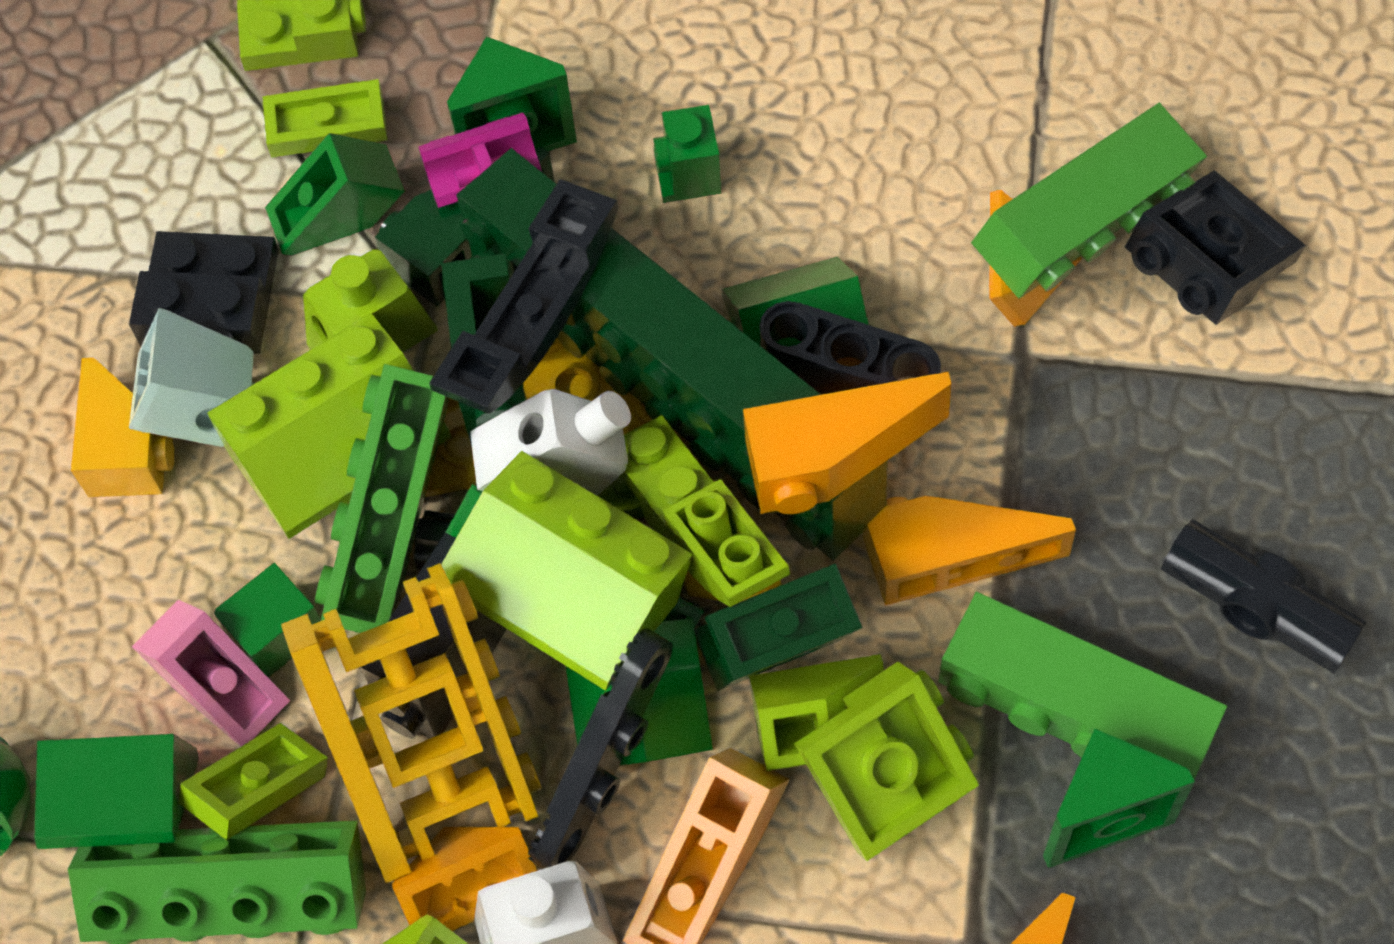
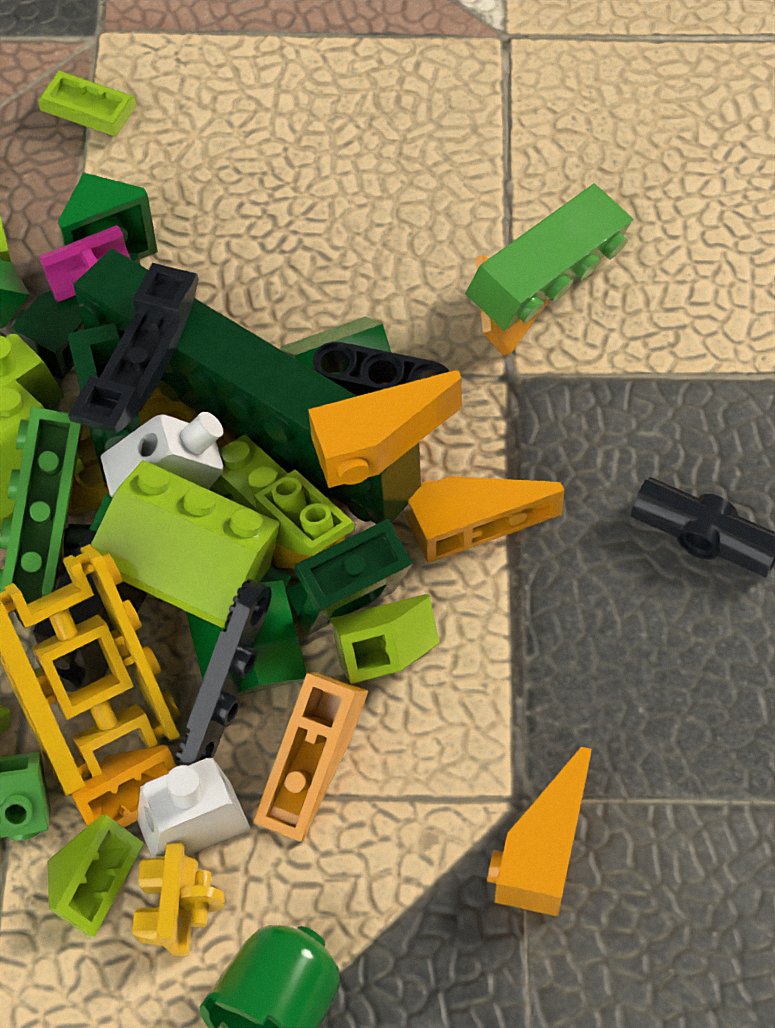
camera: 10 degrees left, 5 degrees down
(687, 155) = (244, 251): green brick -> none
(888, 759) = (441, 665): lime plate -> none
(1071, 686) = (579, 608): bright green brick -> none
(1115, 798) = (614, 676): green slope -> none
(1212, 247) = (644, 284): black plate -> none

